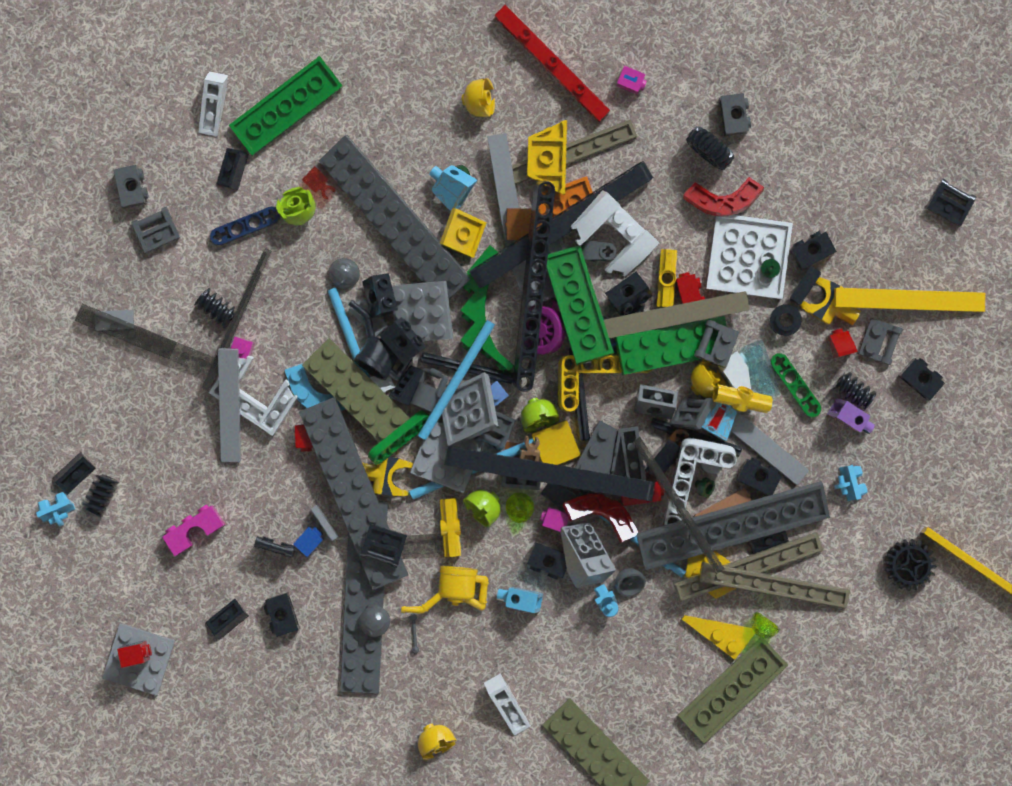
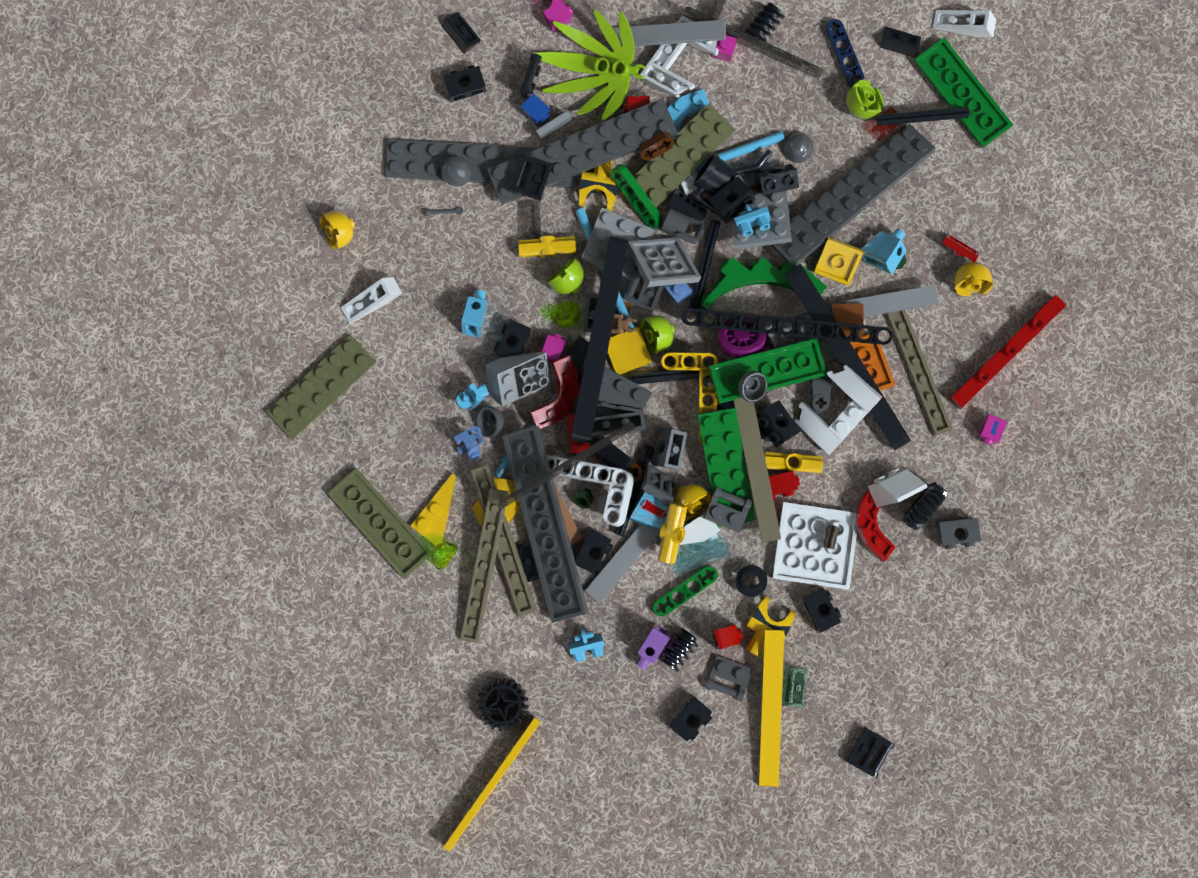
camera: 90 degrees right, 5 degrees down
(264, 463) = (612, 68): none -> lime plant
(312, 147) = (922, 116): none -> black axle
(348, 418) = (656, 146): none -> reddish brown beam
(422, 320) = (752, 217): none -> medium azure hips
(447, 109) = (960, 248): none -> red plate
(456, 380) = (693, 252): medium azure piece -> none
(457, 586) = (488, 252): yellow piece -> none
(548, 156) = (915, 346): yellow wing -> none
(598, 320) = (752, 386): none -> dark grey piece
(652, 604) = (470, 444): none -> medium blue piece
(692, 177) = (895, 487): none -> white slope
(741, 241) = (831, 536): none -> dark brown pin
(765, 268) = (798, 565): dark green tile -> none
(805, 285) = (786, 600): black slope -> none
(888, 277) = (794, 687): none -> clear green slope

